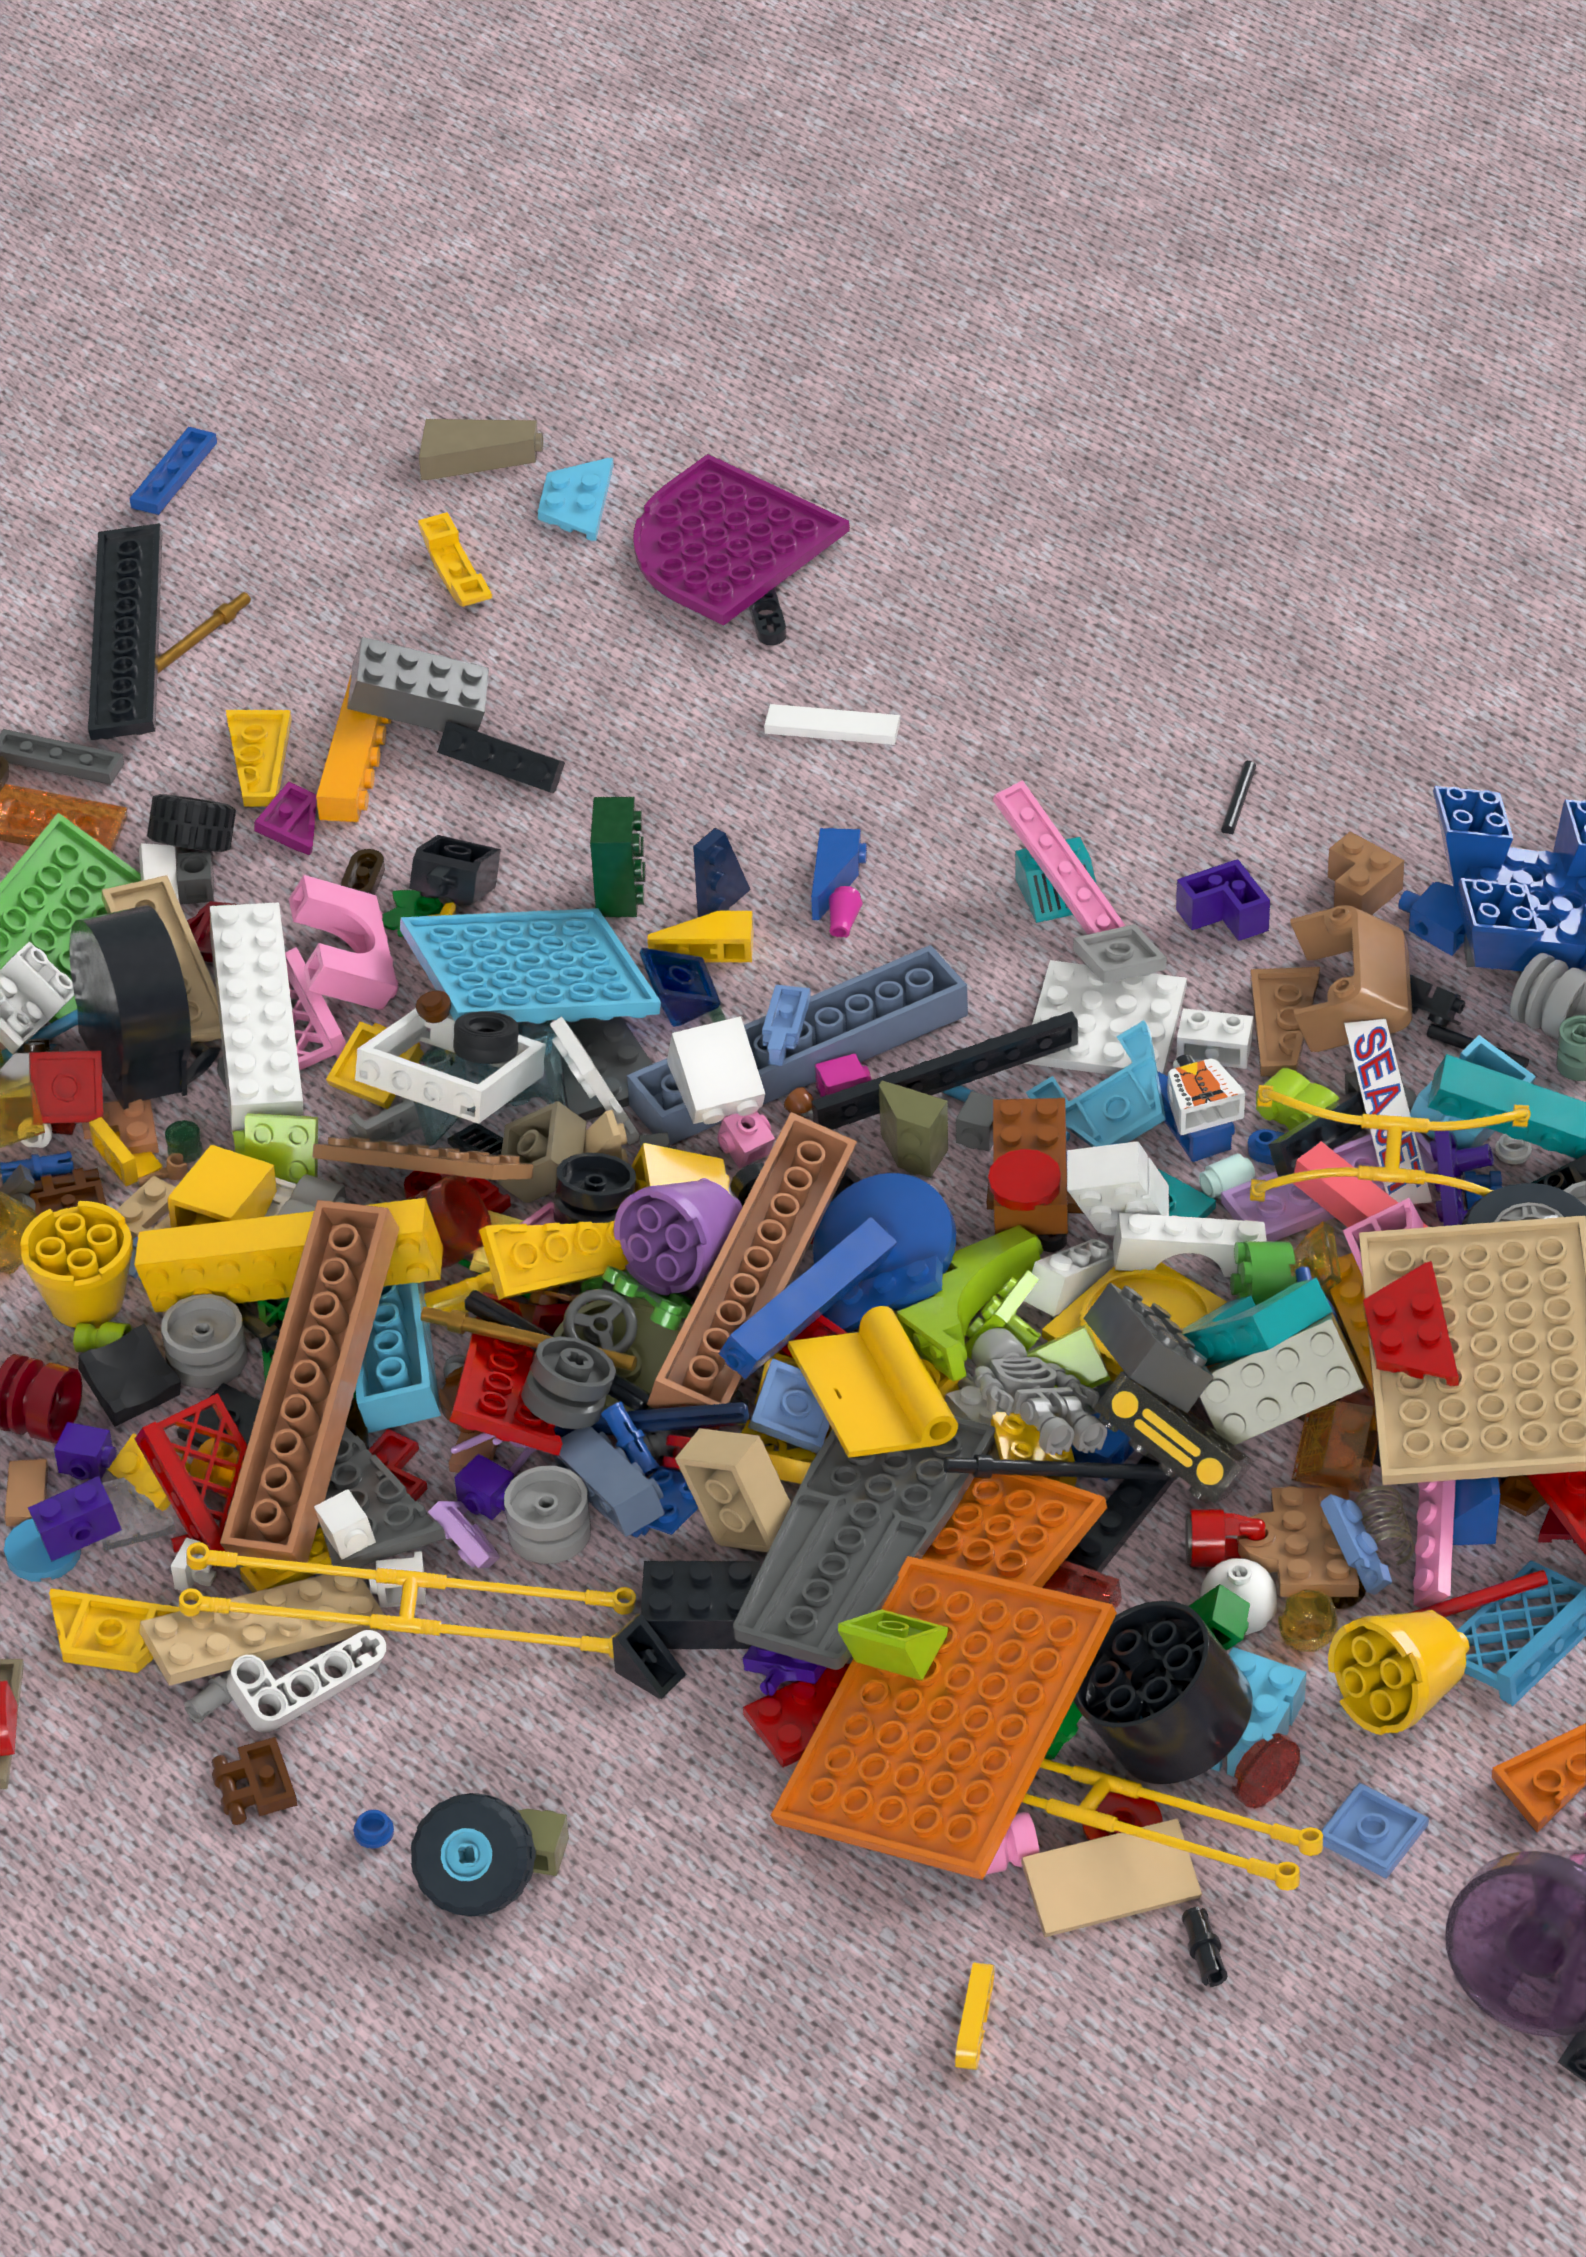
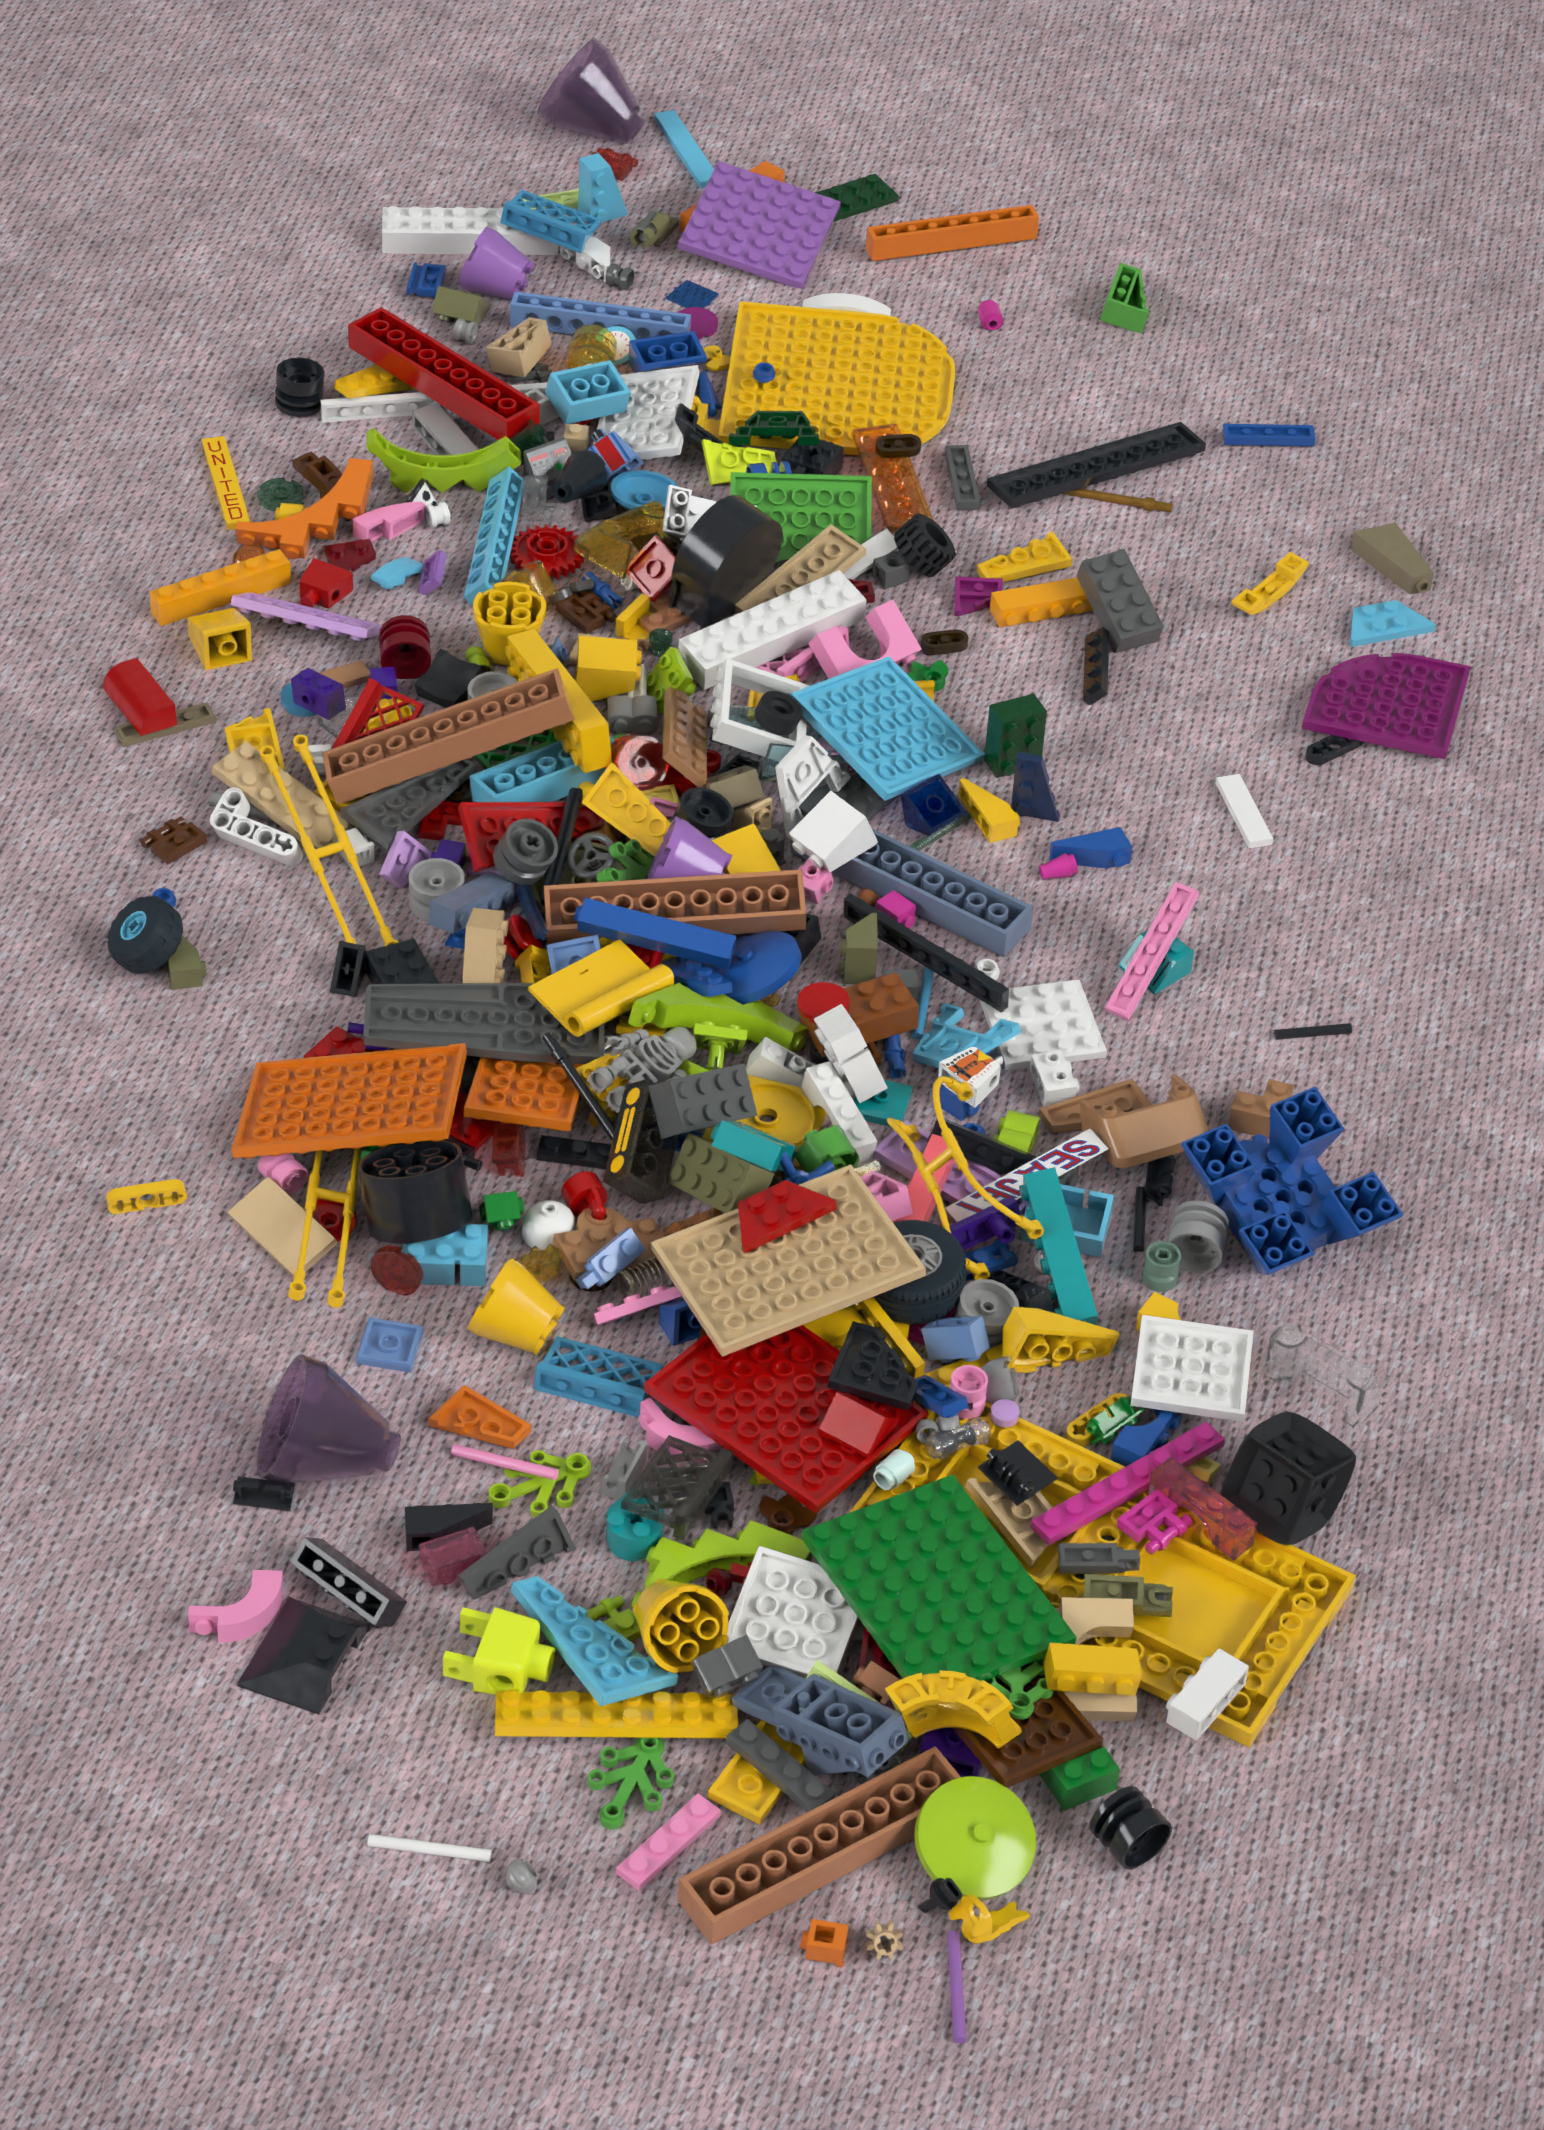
camera: 60 degrees right, 0 degrees up
(345, 1524) = (364, 798): white brick -> none
(433, 1006) = (795, 683): reddish brown plate -> none
(454, 869) = (963, 673): black hinge -> none
(460, 1322) = (551, 793): pearl gold bar -> none
(629, 1438) = (511, 897): blue pin -> none
(784, 1021) = (906, 854): medium blue hinge -> none
(893, 1642) = (388, 1052): lime slope -> none
(984, 1031) = (988, 967): none -> white plate
(1119, 953) = (1095, 1004): light grey plate -> none
(1204, 1946) = (251, 1287): black pin -> none
(1226, 895) = (1190, 1044): dark purple brick -> none
(1226, 1175) = (920, 1116): light aqua brick -> none
(1488, 1594) = (607, 1341): red bar -> none

